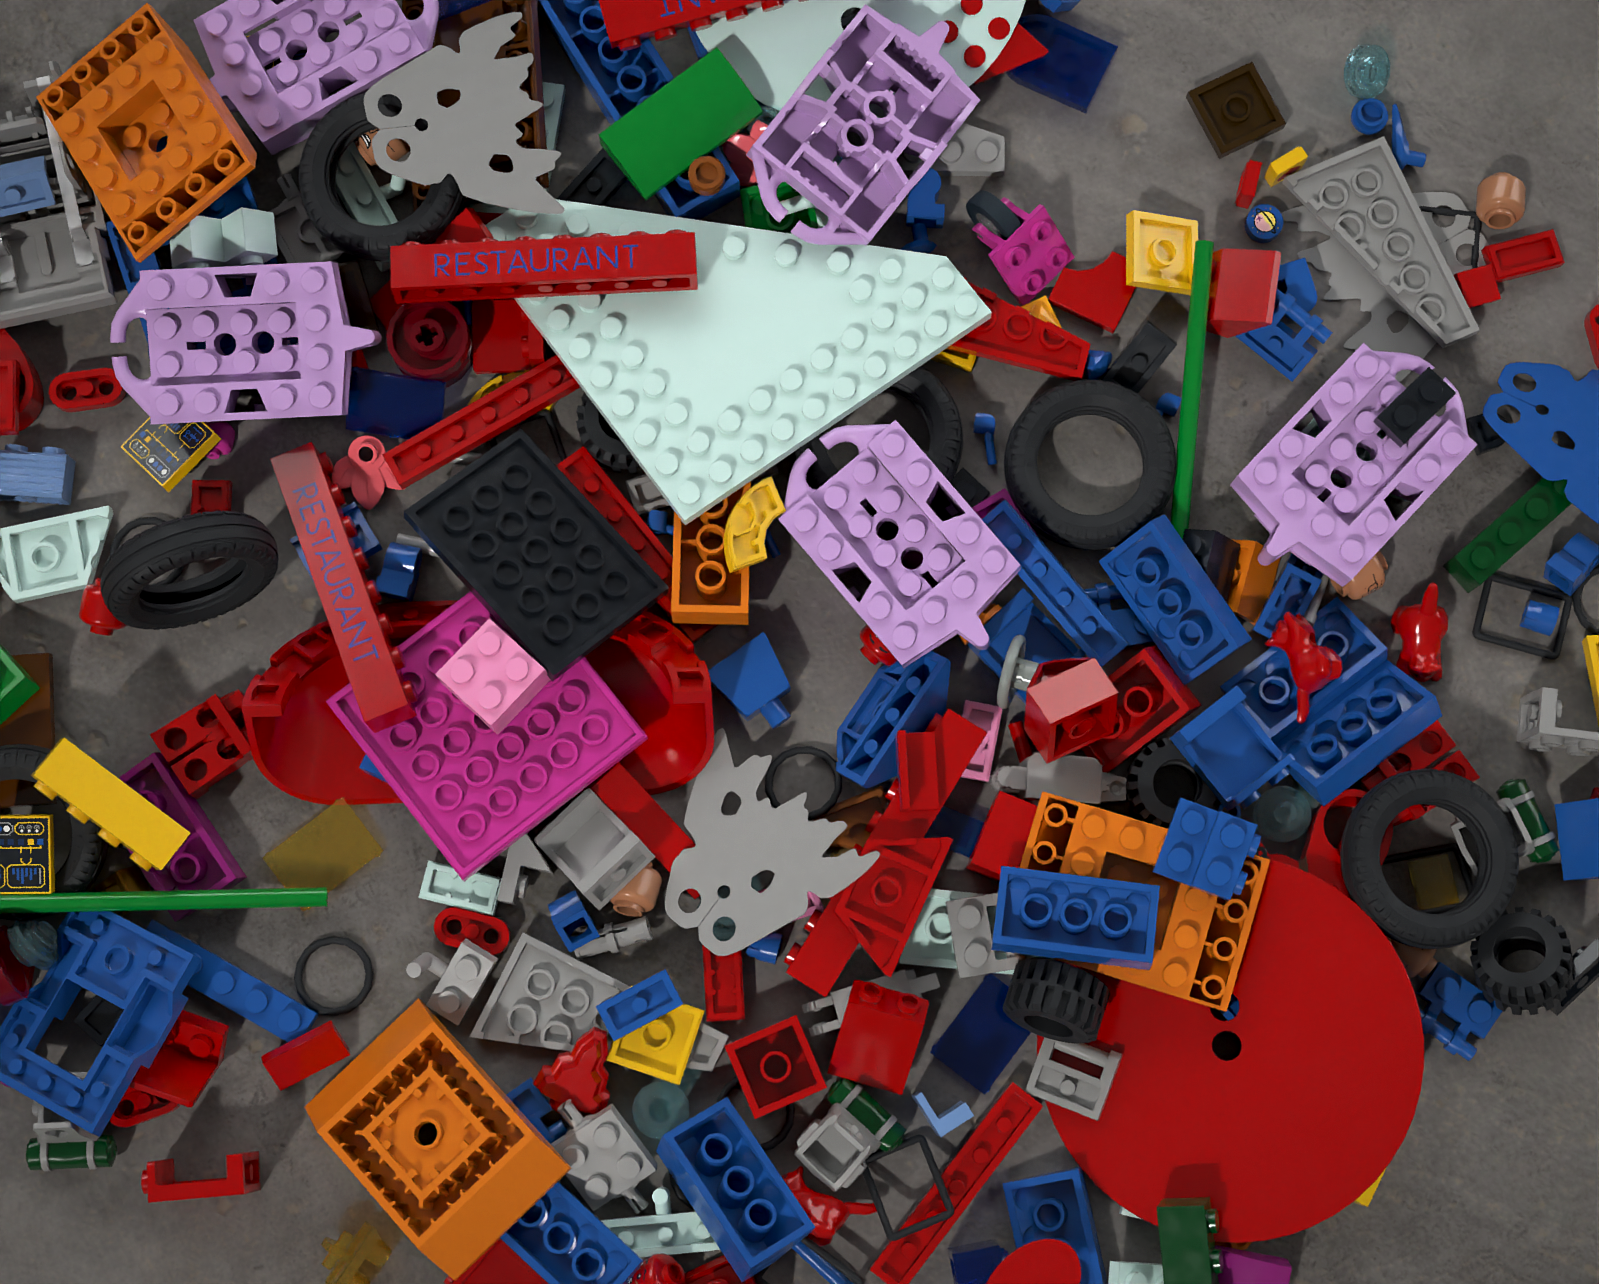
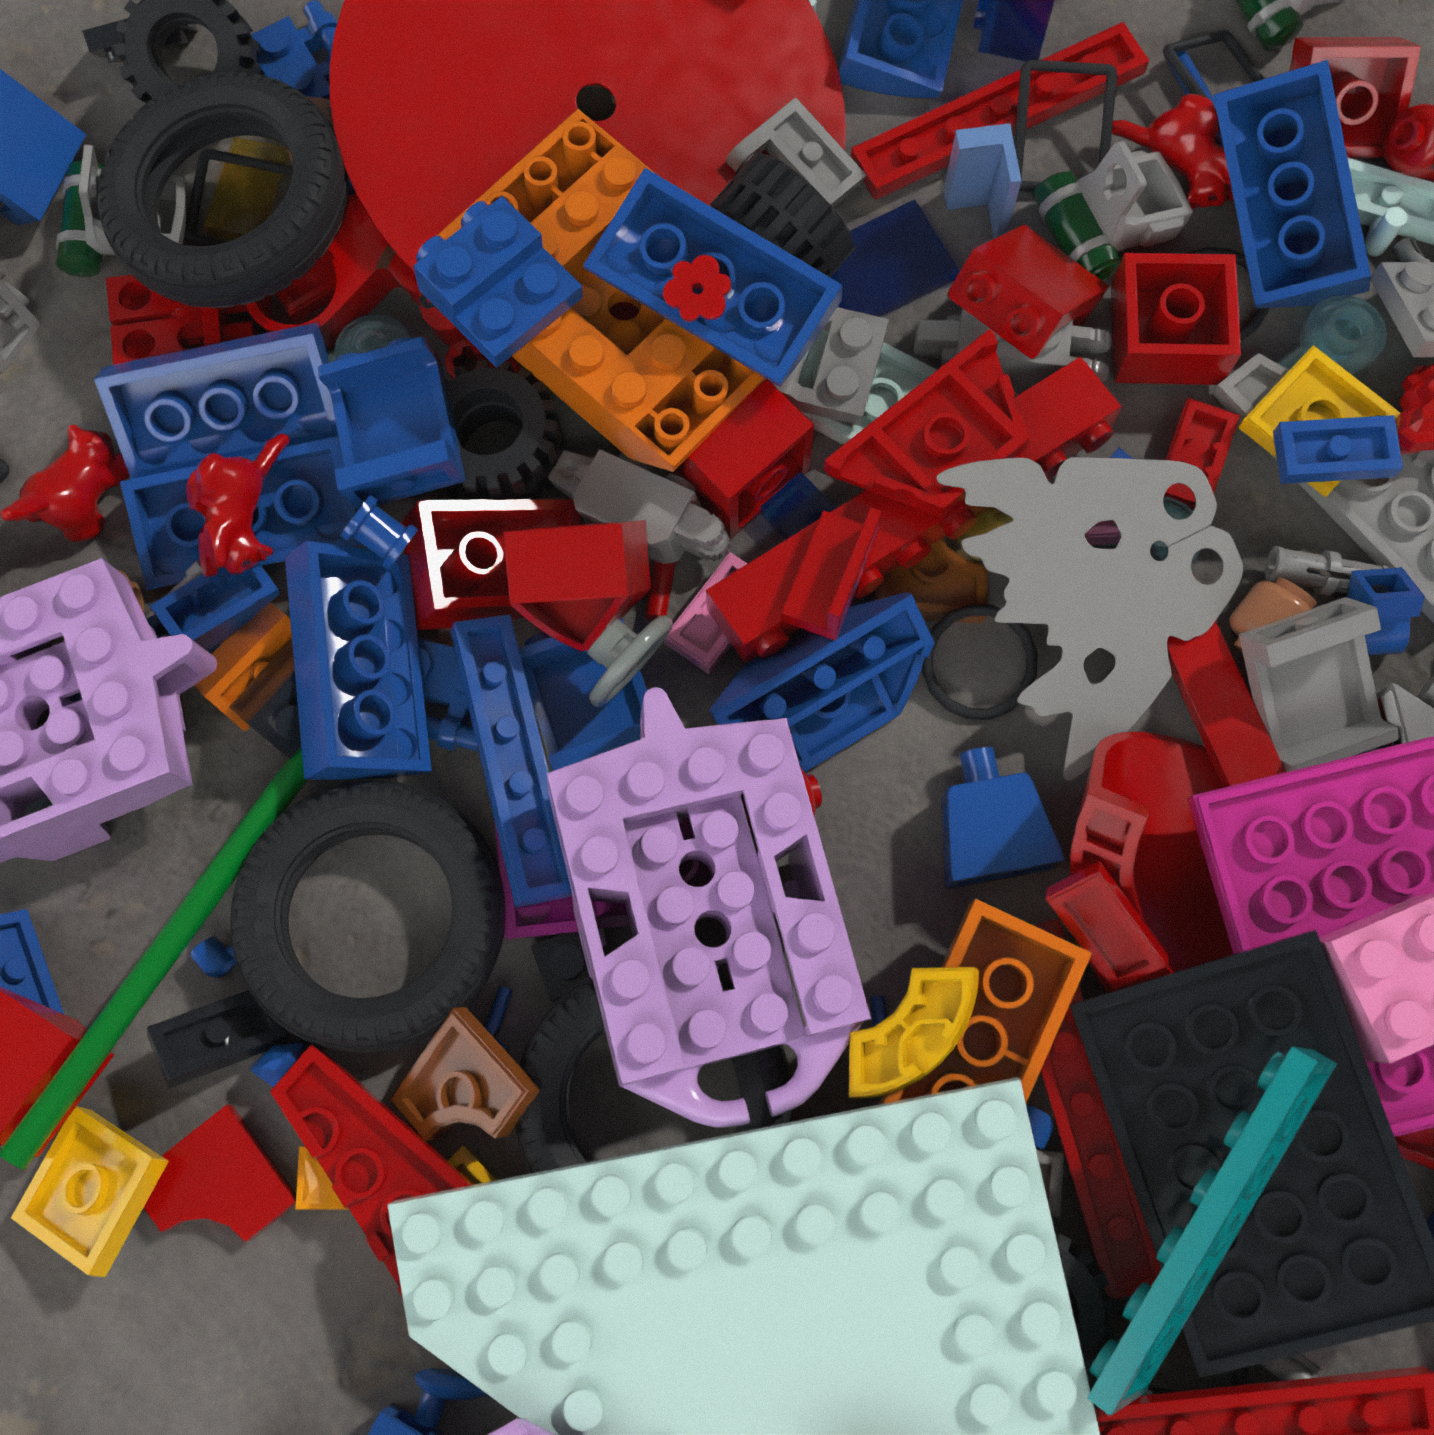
camera: 150 degrees left, 5 degrees down
(550, 495) = (1198, 1249): none -> teal plate
(666, 636) = (1107, 926): none -> red tile
(987, 399) = (464, 1080): none -> dark orange tile
(1023, 245) = (280, 1306): dark pink plate -> none
(1088, 889) = (701, 274): none -> red plant
(1202, 678) = (378, 532): none -> blue bush

